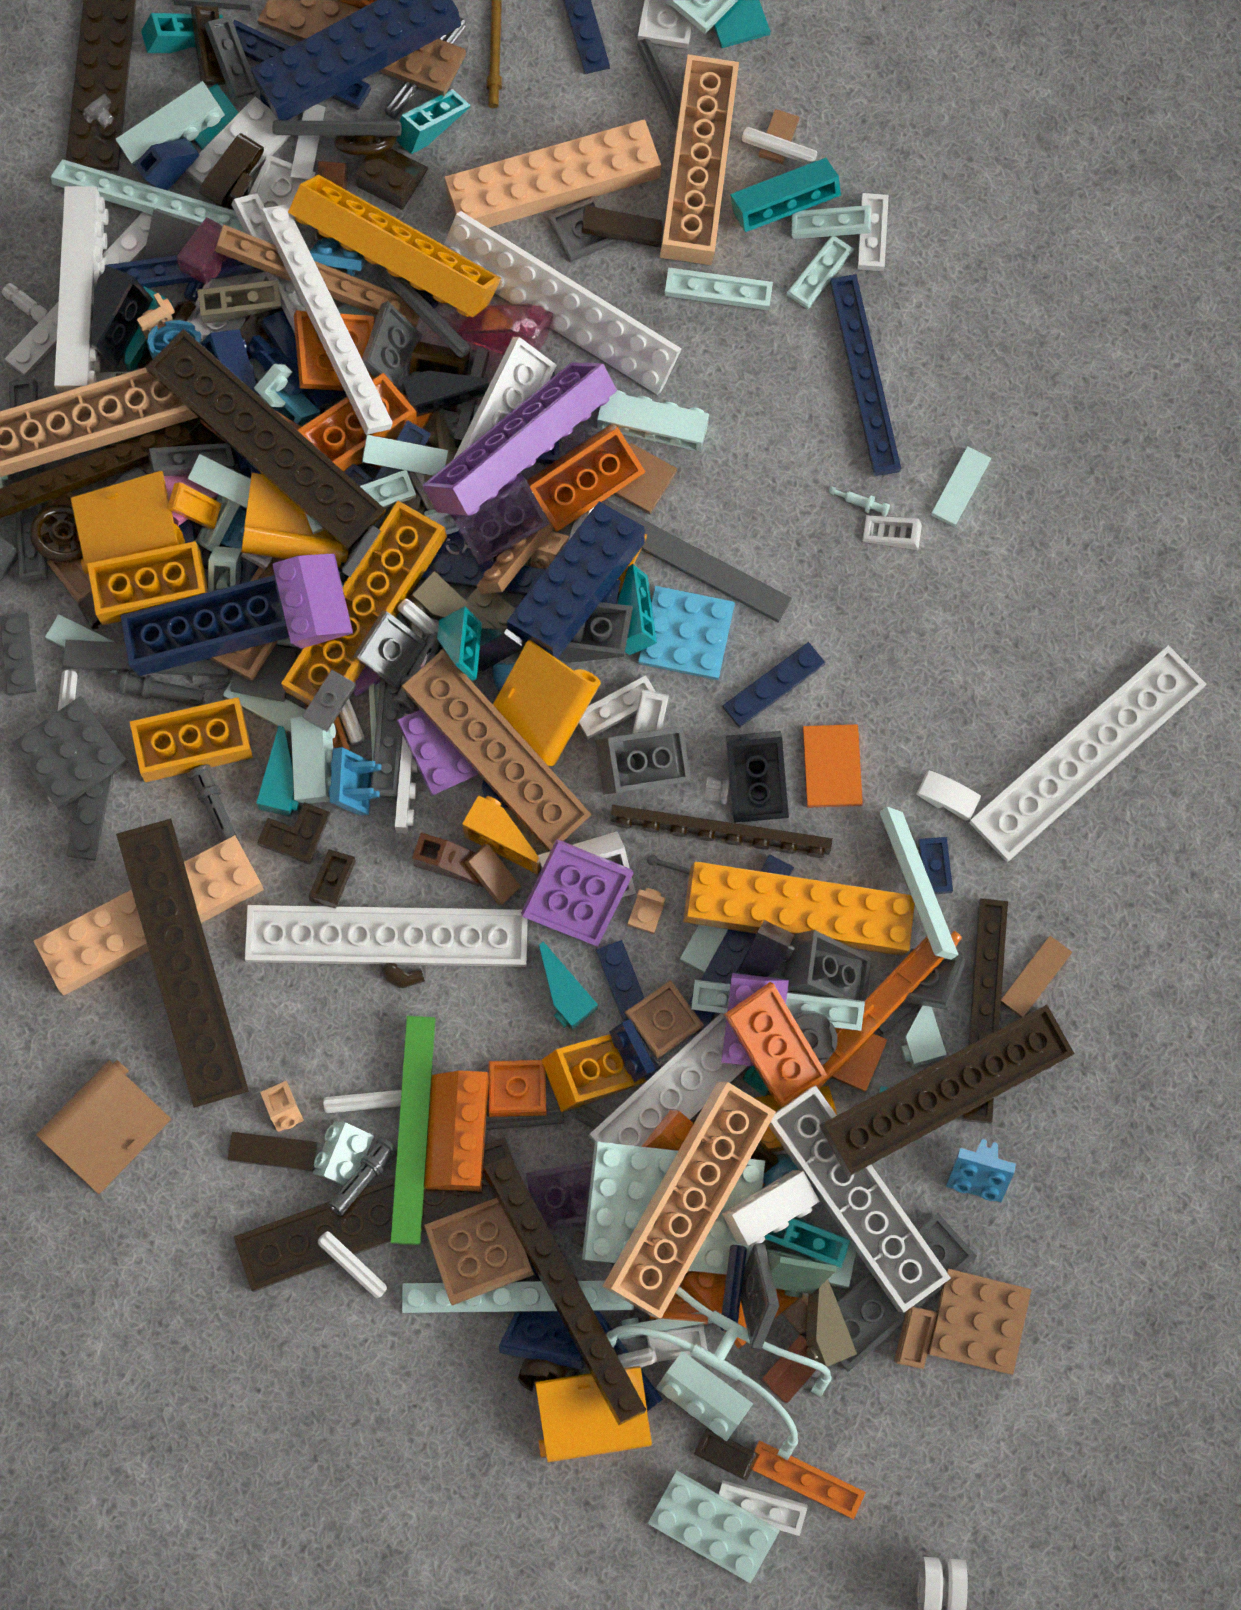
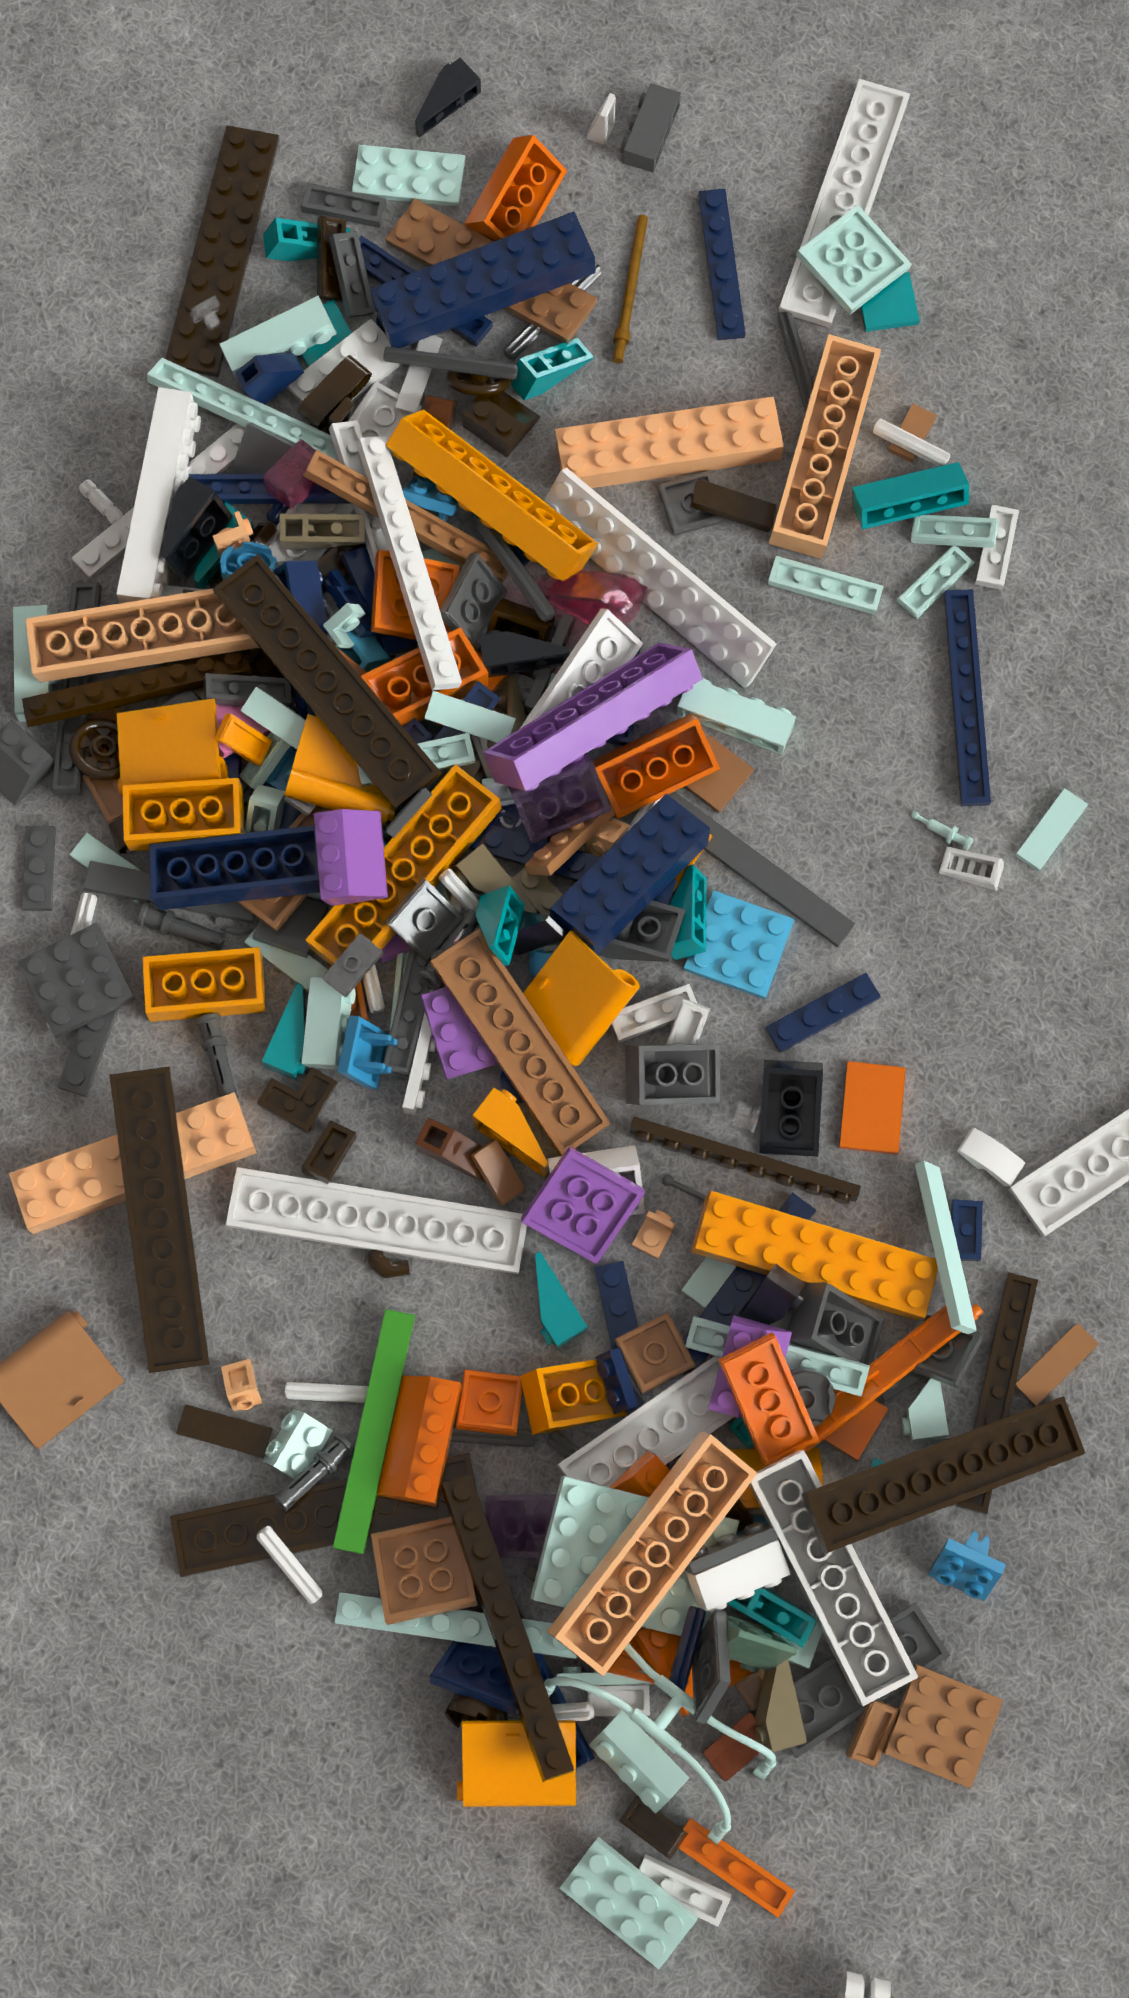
camera: 10 degrees right, 0 degrees up
(761, 1183) = (732, 1546): none -> dark grey plate

